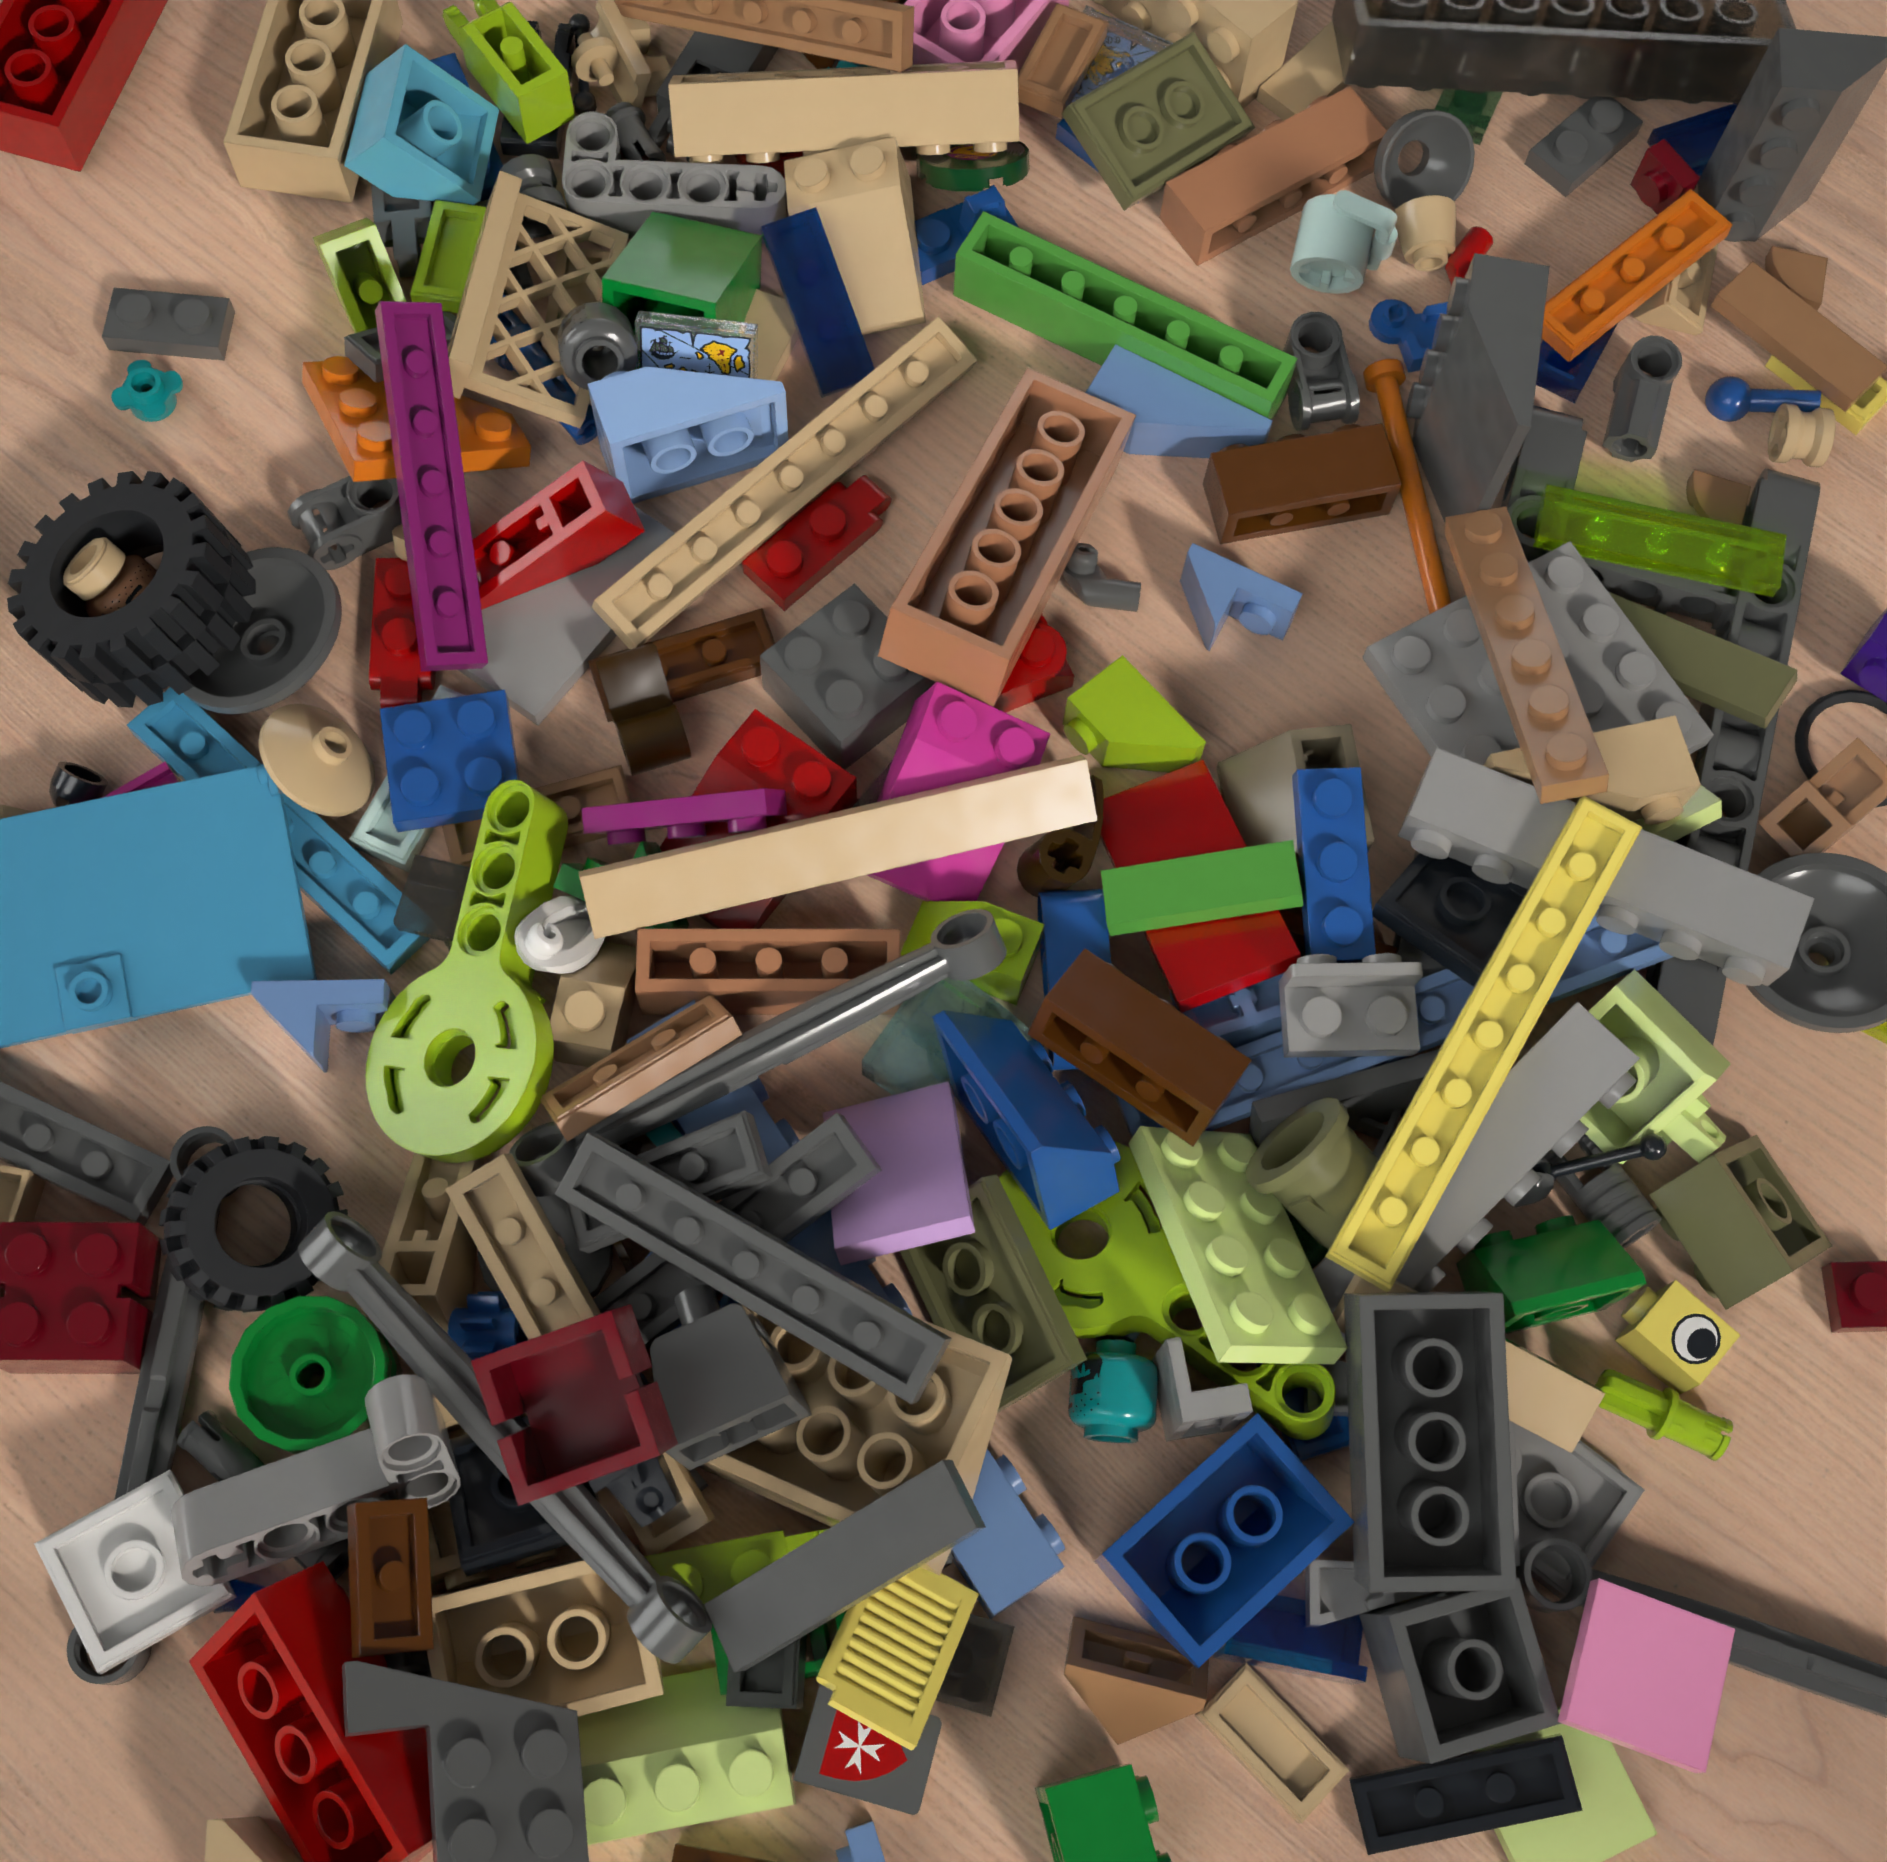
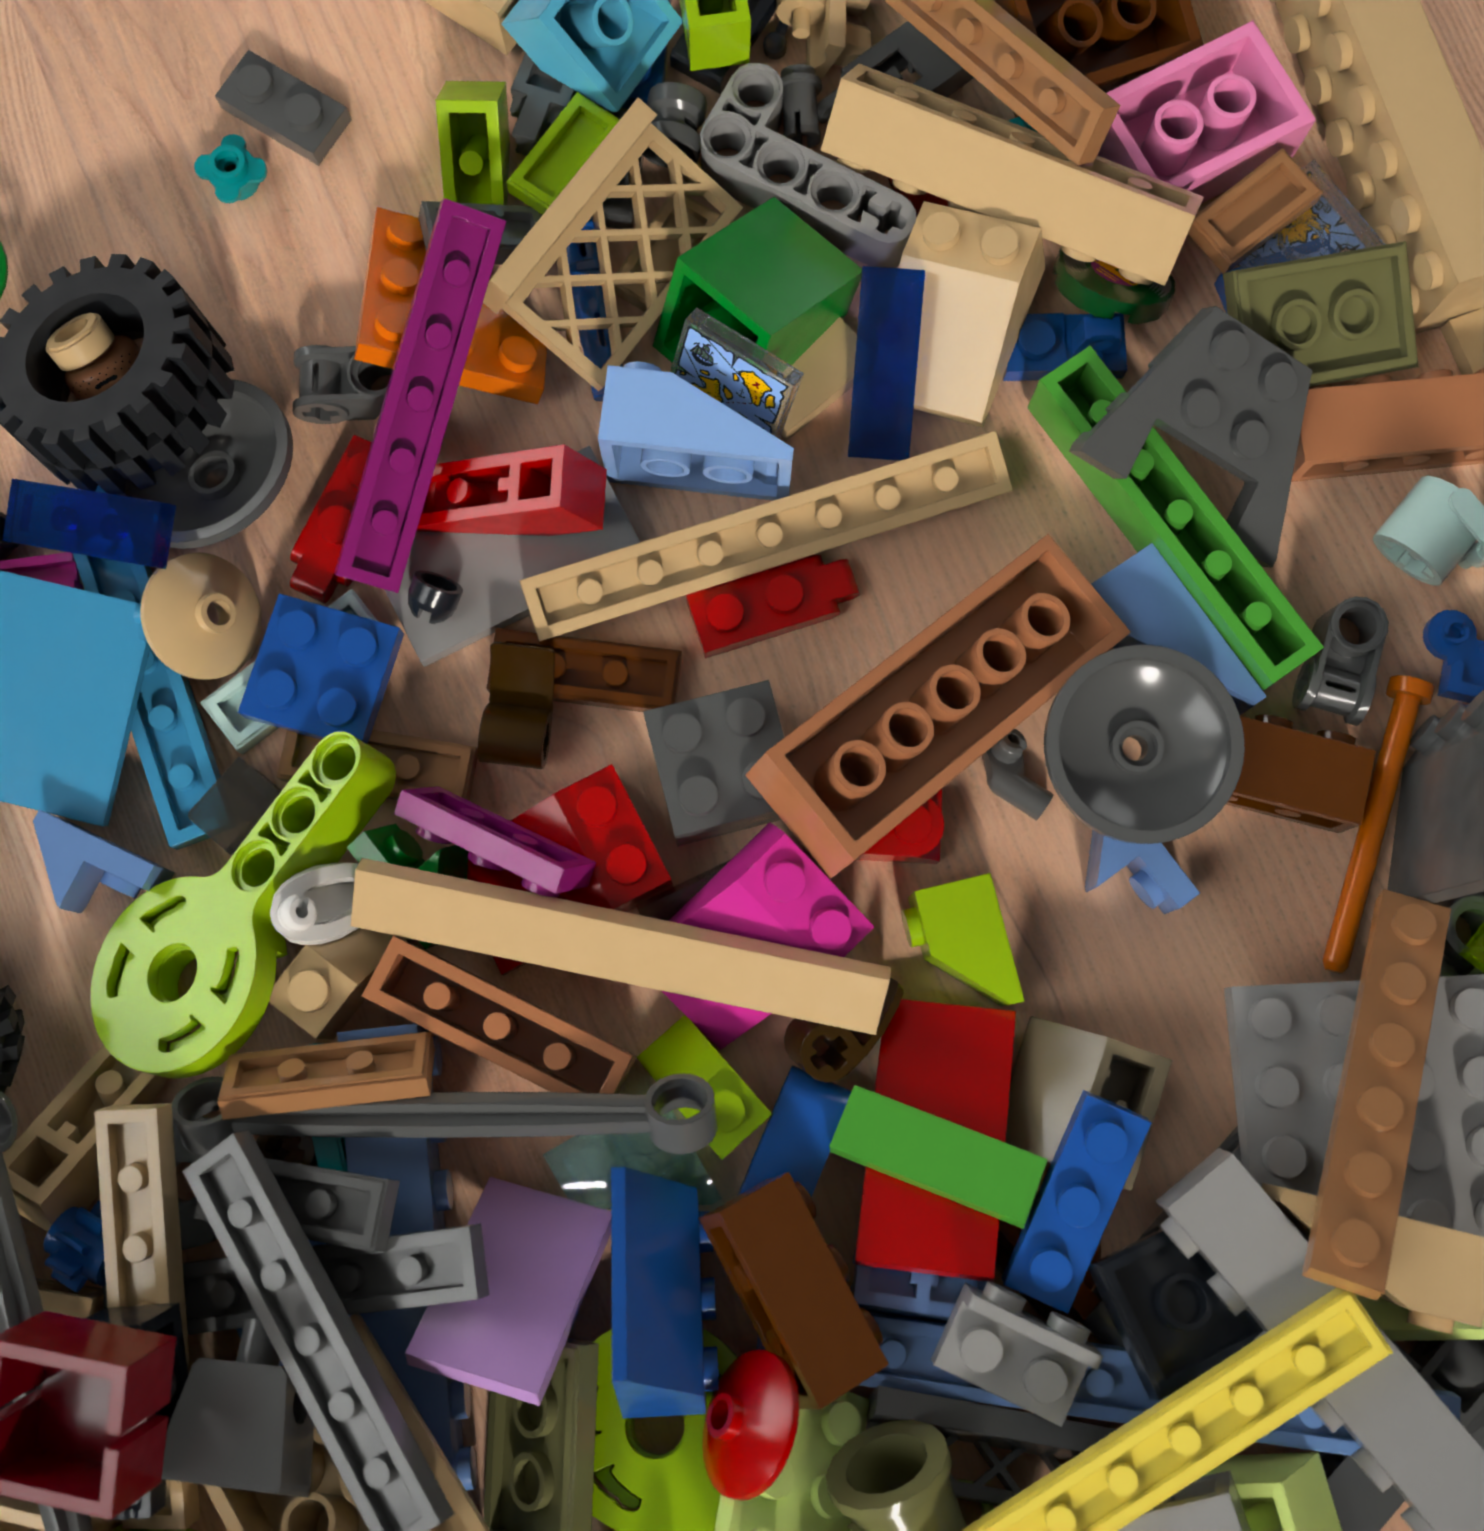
camera: 30 degrees right, 10 degrees up
(174, 721) = (89, 523): none -> clear blue tile
(521, 649) = (433, 594): none -> black hinge
(596, 342) = (643, 322): dark grey head -> none
(1117, 206) = (1227, 400): none -> dark grey wing
(1162, 1165) = (750, 1425): none -> red dish
(1201, 460) = (1185, 734): none -> dark grey dish

